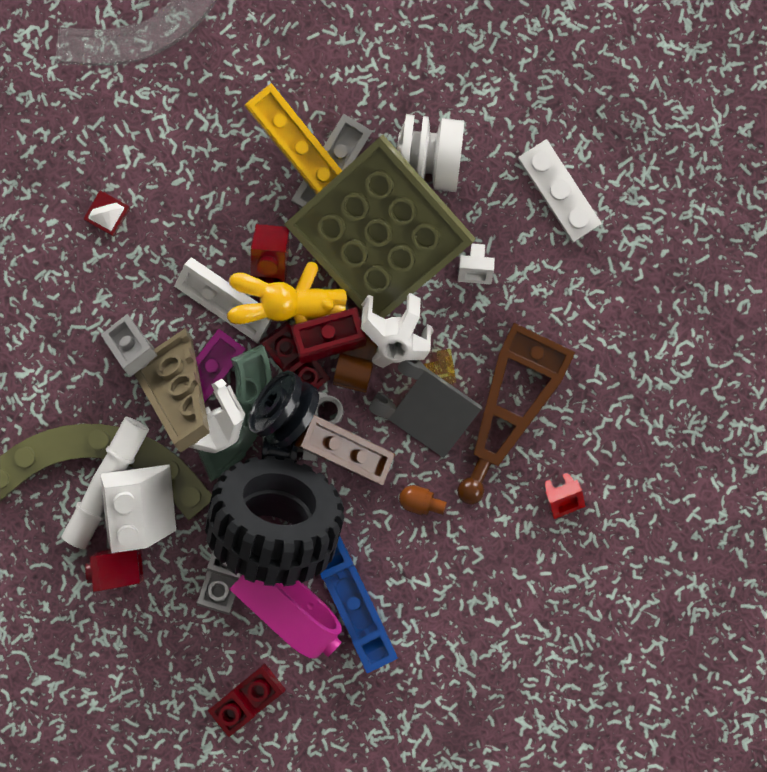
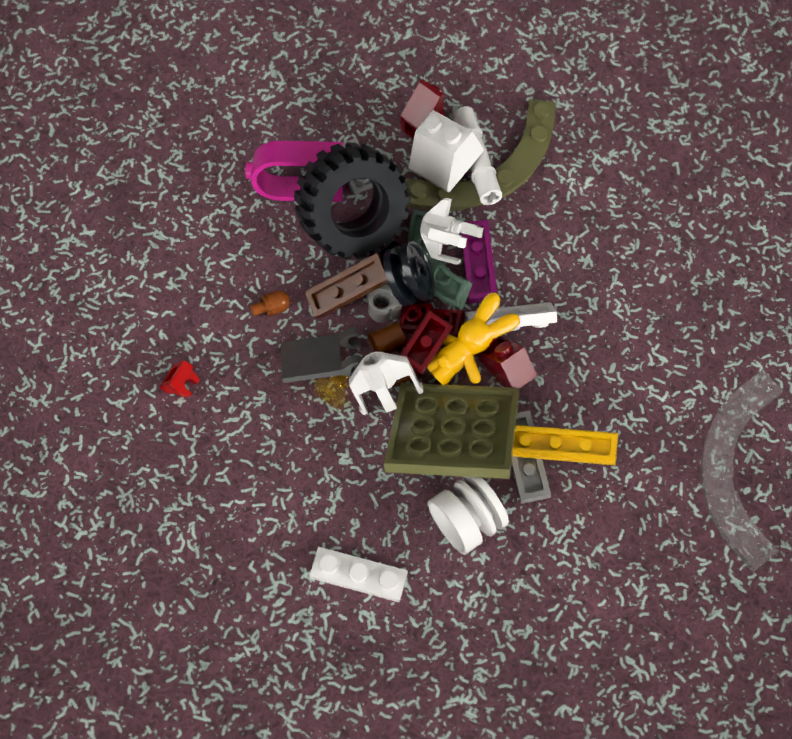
camera: 130 degrees right, 20 degrees down
(107, 213) = (635, 310): tile -> none
(129, 345) = (540, 242): light grey slope -> none
(176, 390) = (489, 230): dark tan wing -> none
(246, 700) = (274, 113): dark red slope -> none
(357, 611) = (252, 211): blue slope -> none
(476, 267) = (370, 474): white tile -> none
(536, 354) = (276, 452): reddish brown plate -> none

